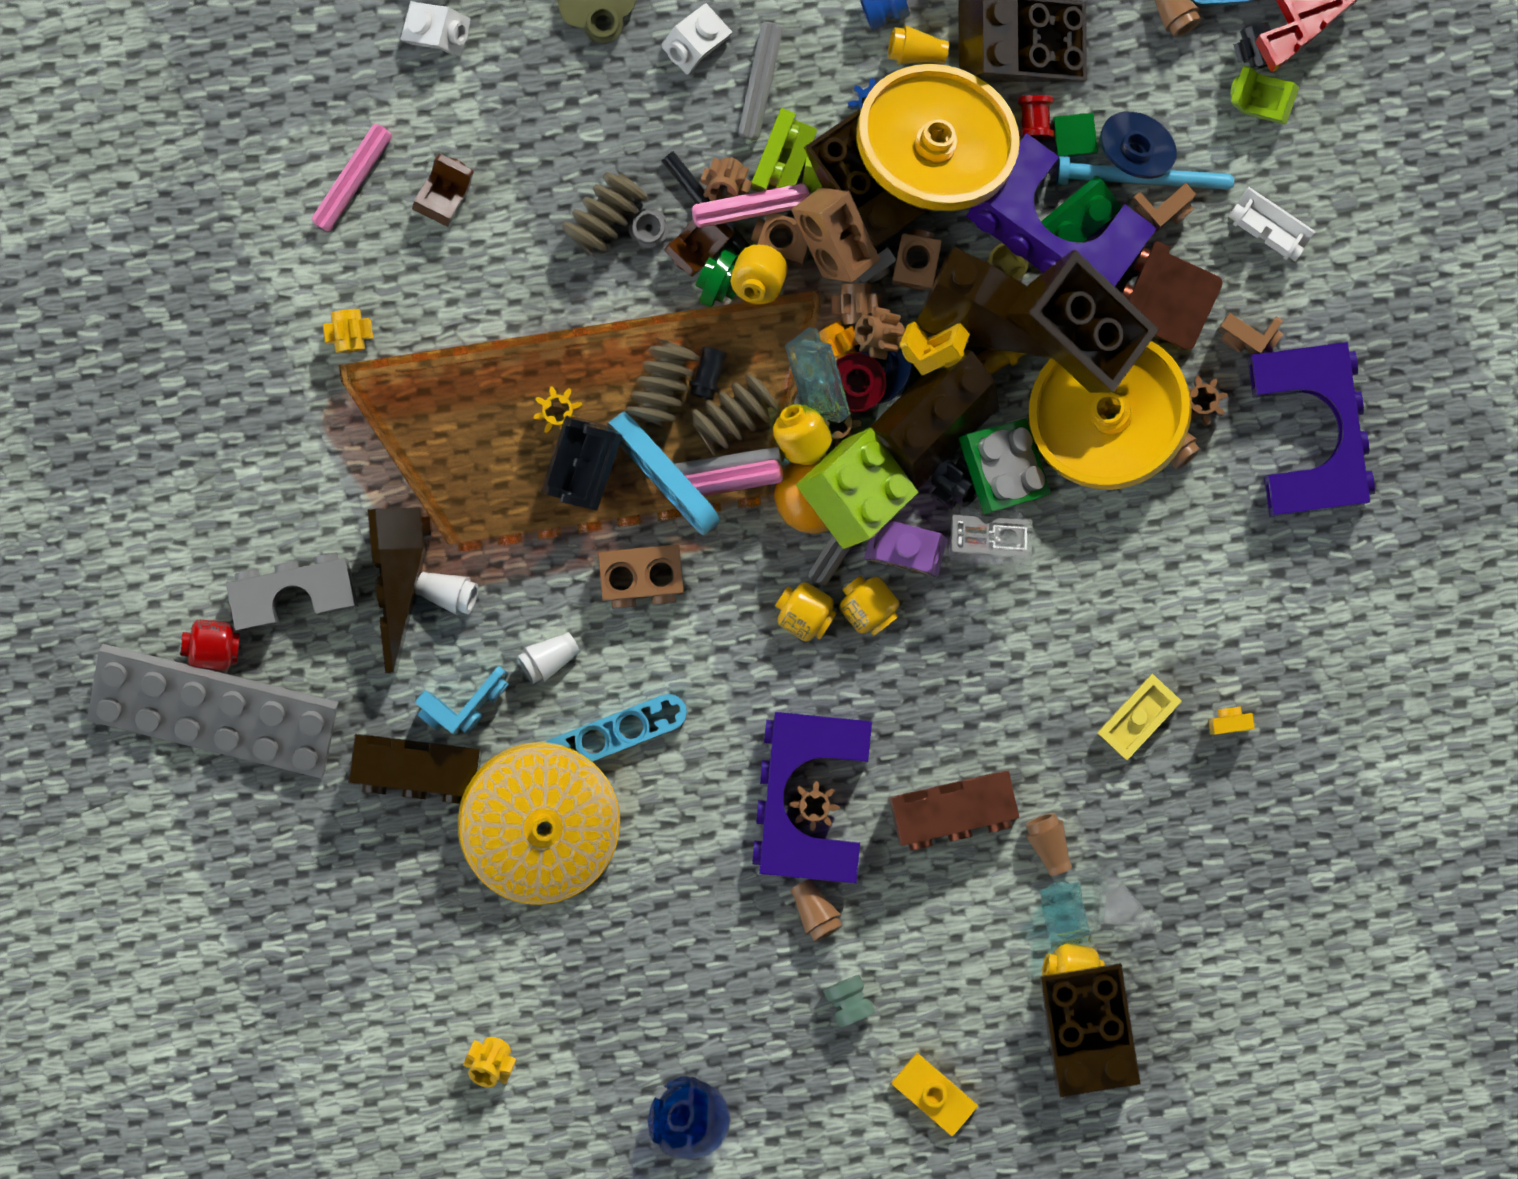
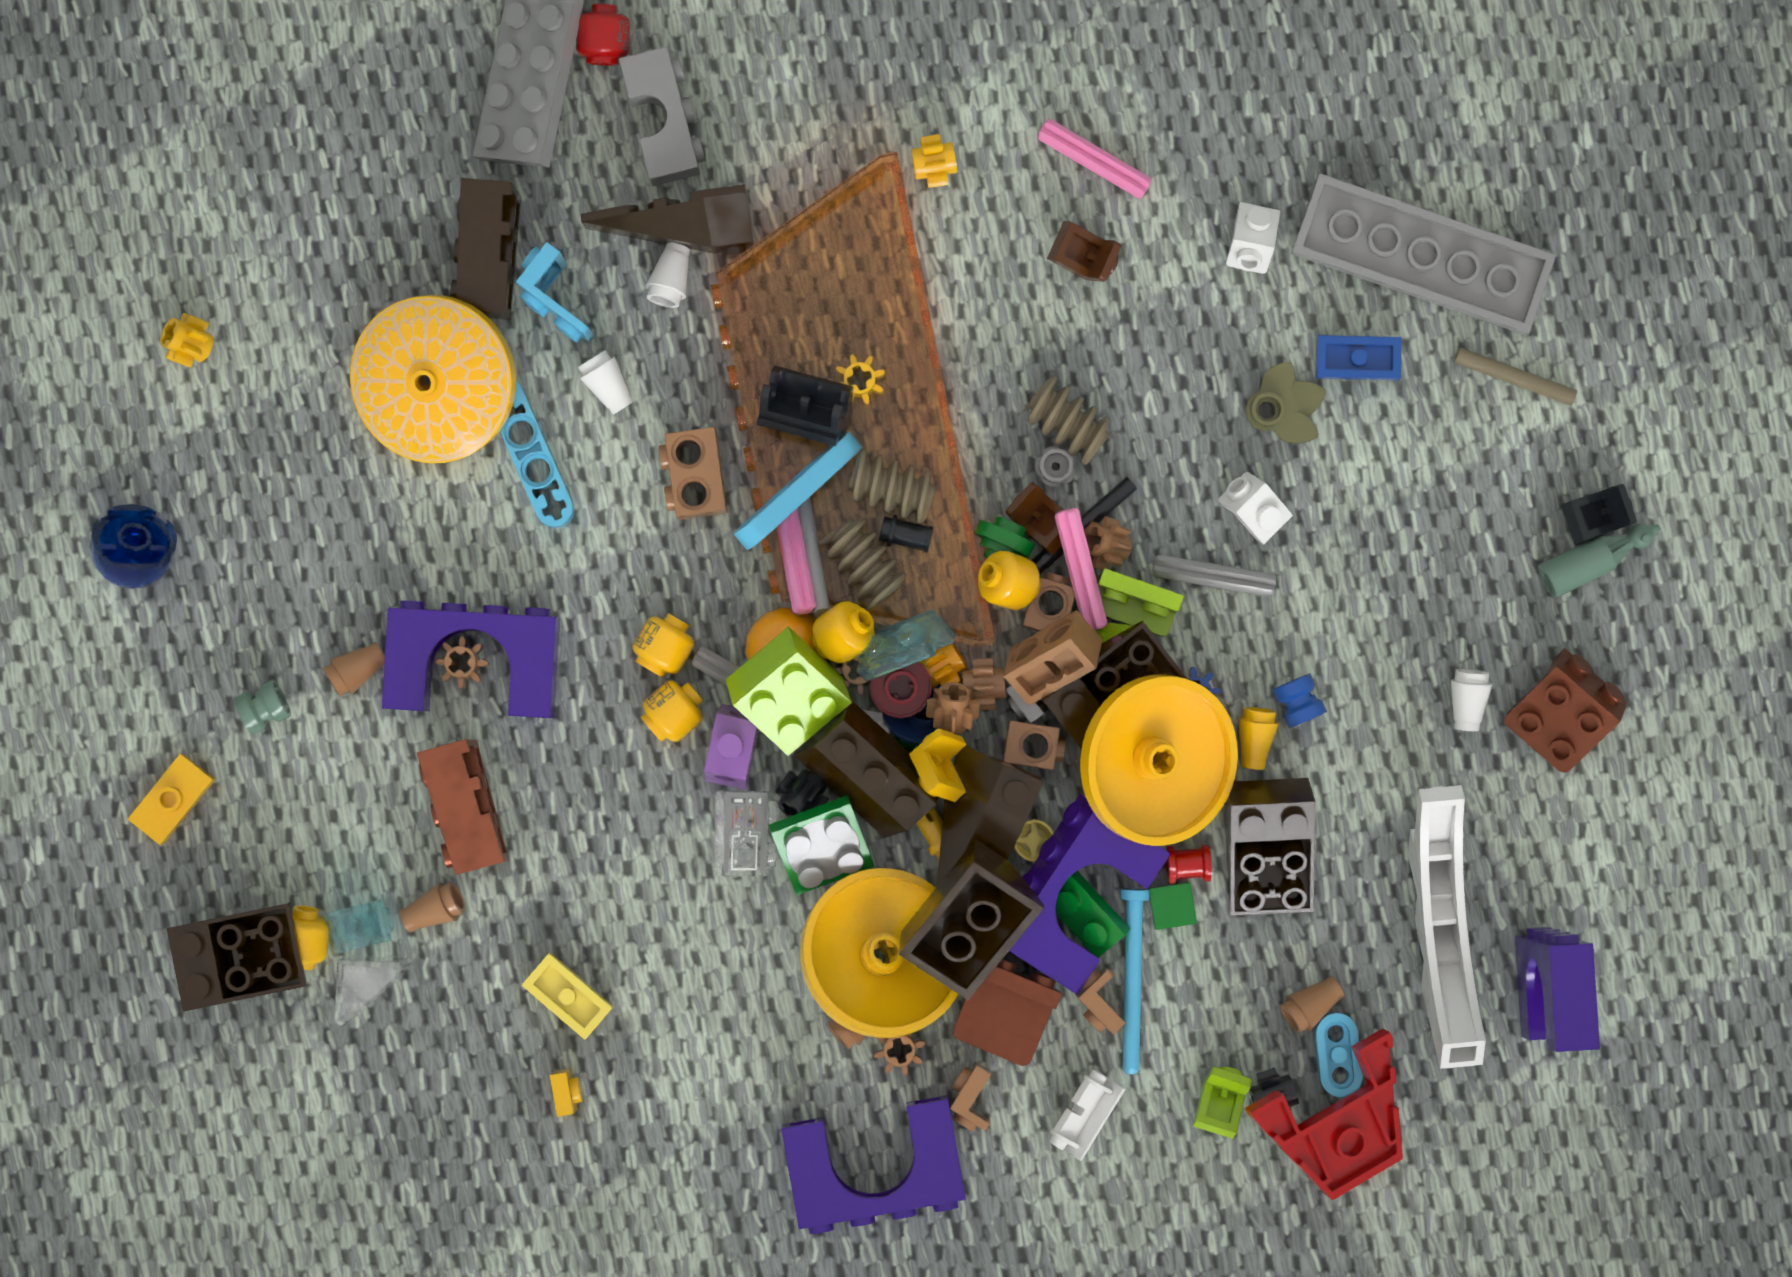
camera: 85 degrees right, 0 degrees up
(1138, 145) = (1164, 971): dark blue dish -> none

